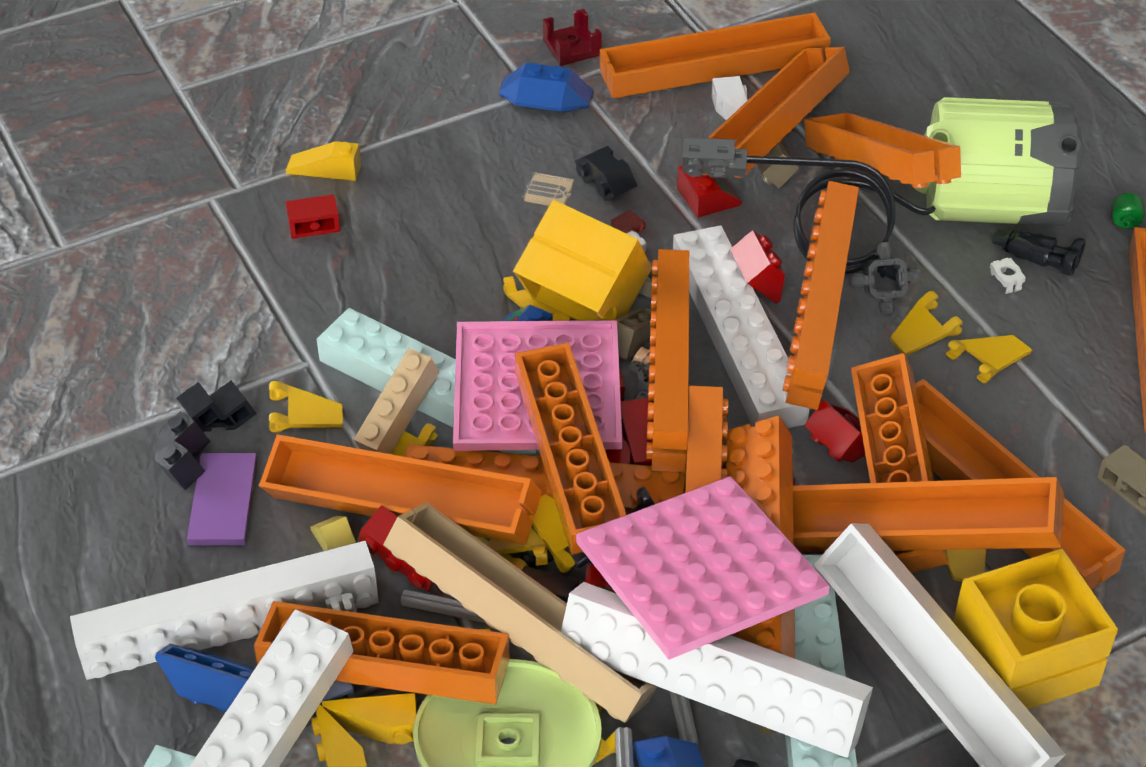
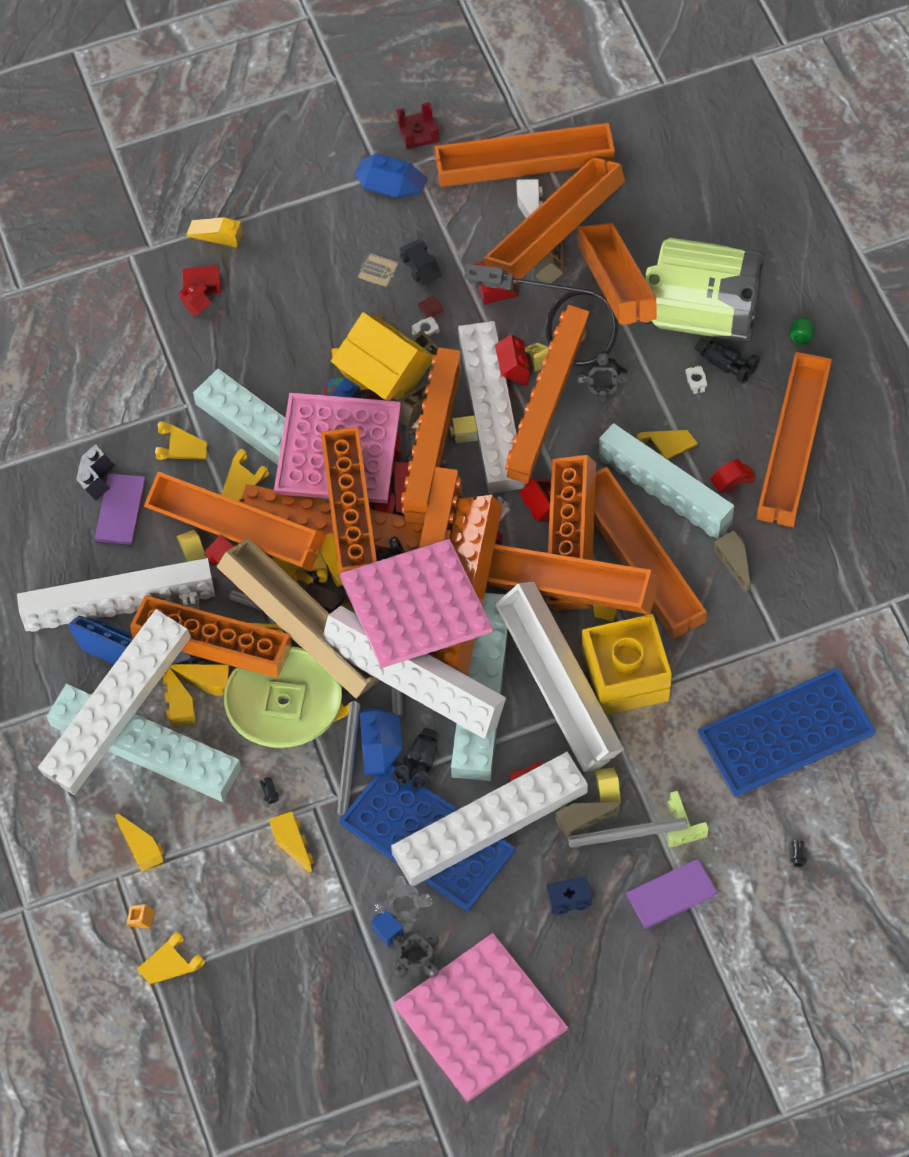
camera: 10 degrees right, 15 degrees up
(221, 409) = (125, 440): black brick -> none
(305, 232) = (194, 298): none -> red brick
(397, 403) = (241, 453): tan brick -> none
(707, 356) = (464, 429): none -> light yellow brick
(793, 264) = (536, 355): none -> light yellow slope
(922, 328) = (624, 415): yellow flag -> none
(1013, 393) = (665, 481): none -> light aqua brick
(1095, 380) = (731, 475): none -> red brick

